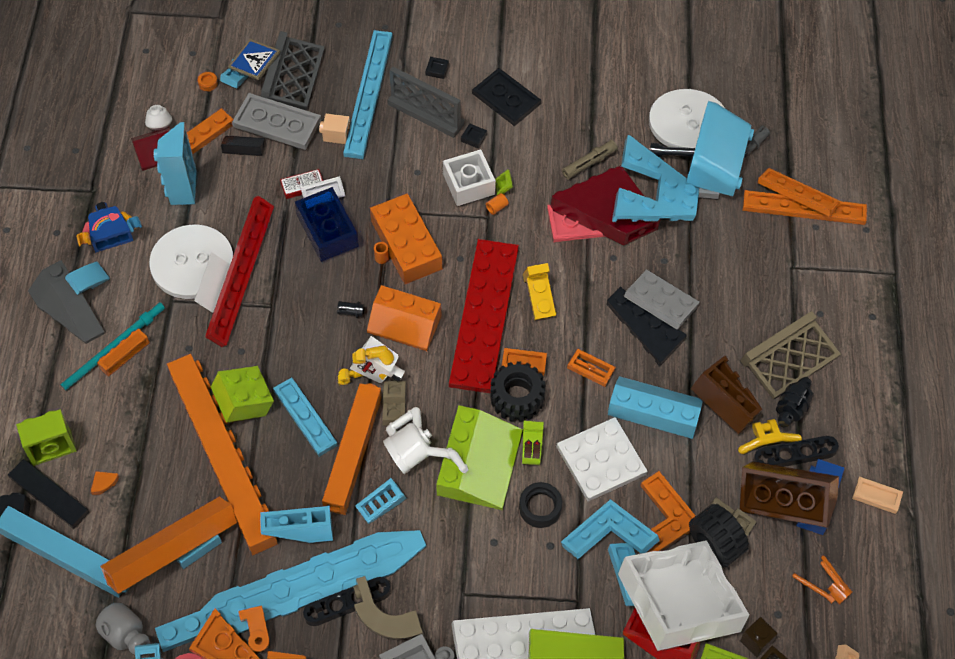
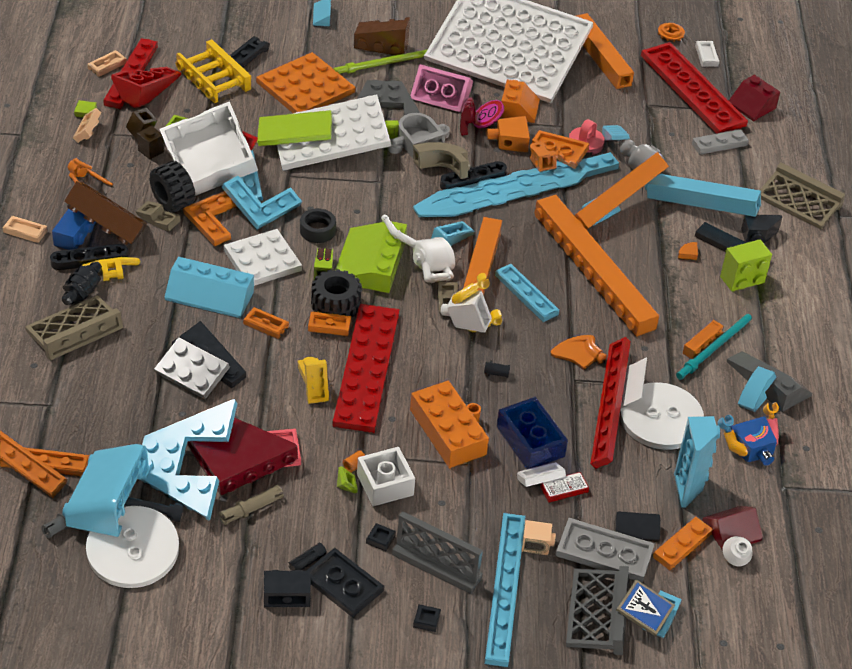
camera: 175 degrees right, 15 degrees down
(207, 81) = (695, 603): orange tile -> none
(242, 393) = (585, 292): lime brick -> none
(260, 337) = (580, 351): none -> orange arm
(298, 524) = (519, 206): medium azure slope -> none
(404, 318) = (442, 362): orange slope -> none
(537, 114) = (307, 557): none -> black piece
(554, 83) = (287, 588): none -> black brick
(726, 395) = (146, 286): reddish brown wedge -> none

